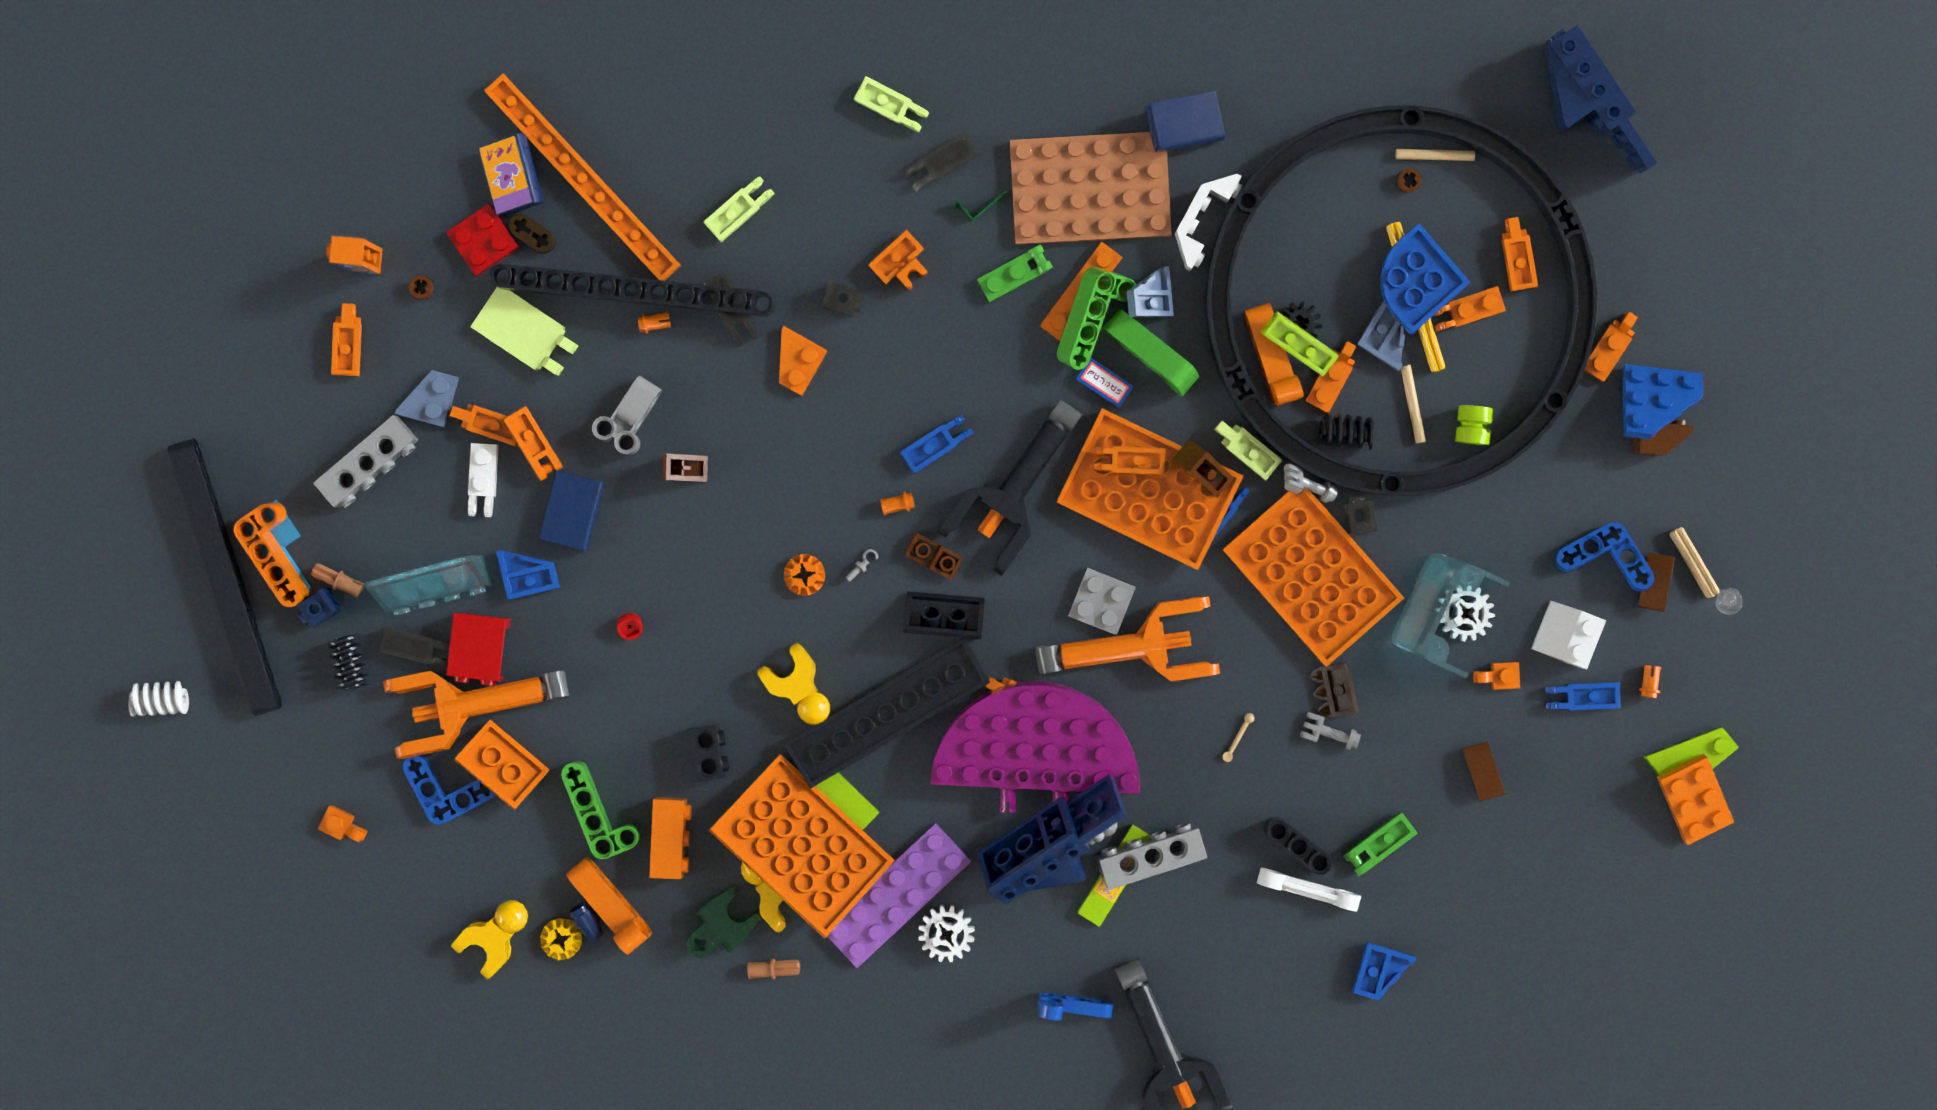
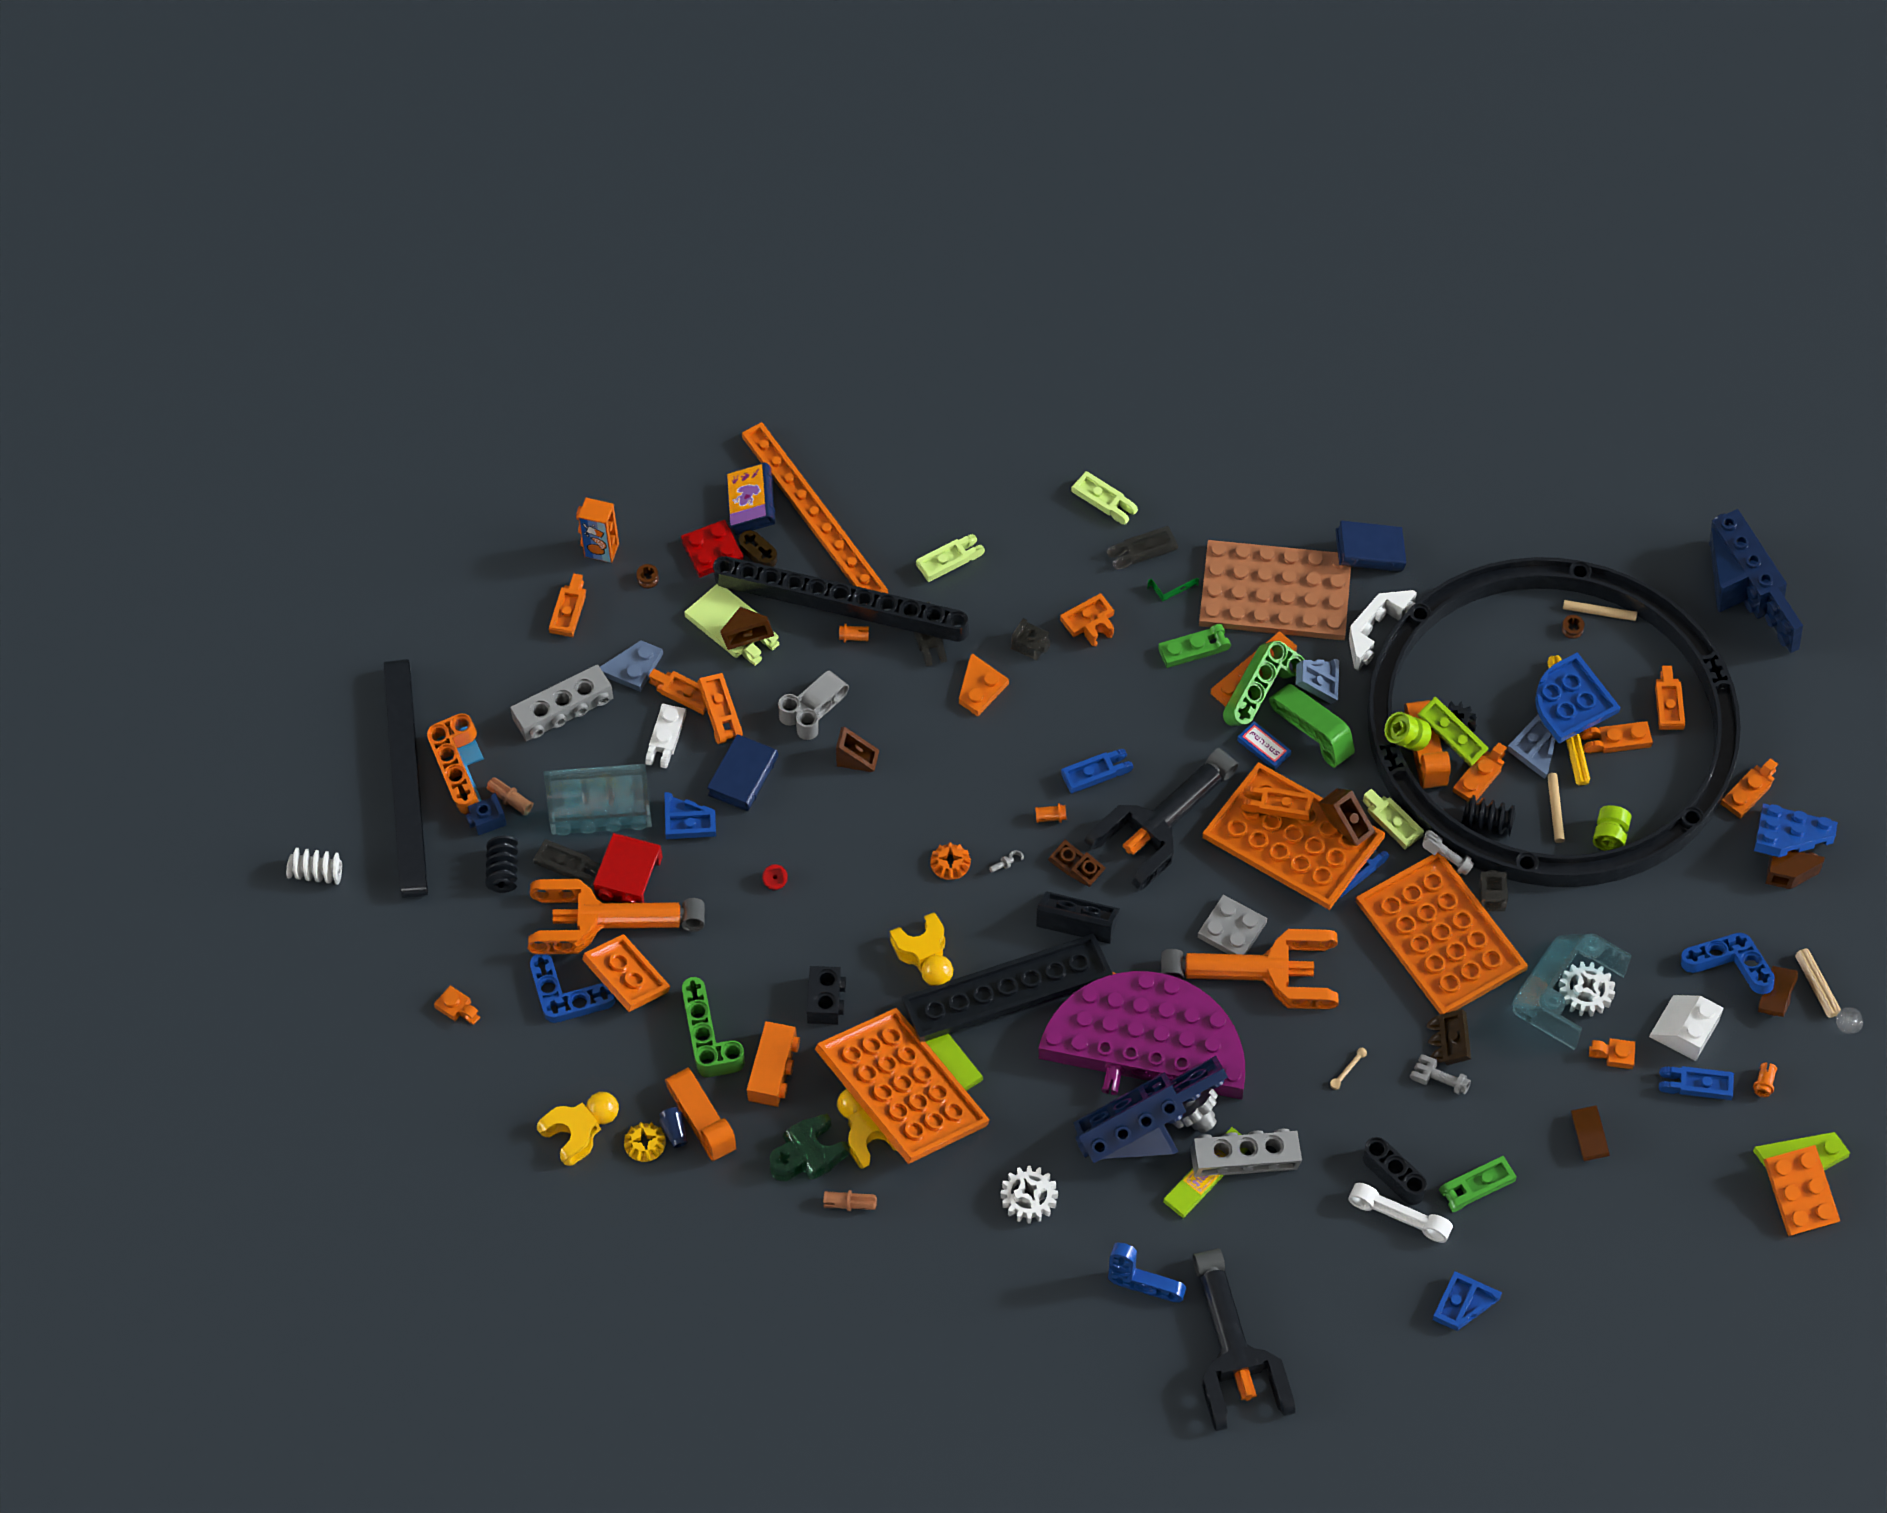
camera: 10 degrees right, 30 degrees down
(538, 347) = (746, 628): none -> reddish brown slope
(899, 894) = (985, 1155): medium lavender plate -> none
(1254, 358) = (1407, 731): none -> lime wheel

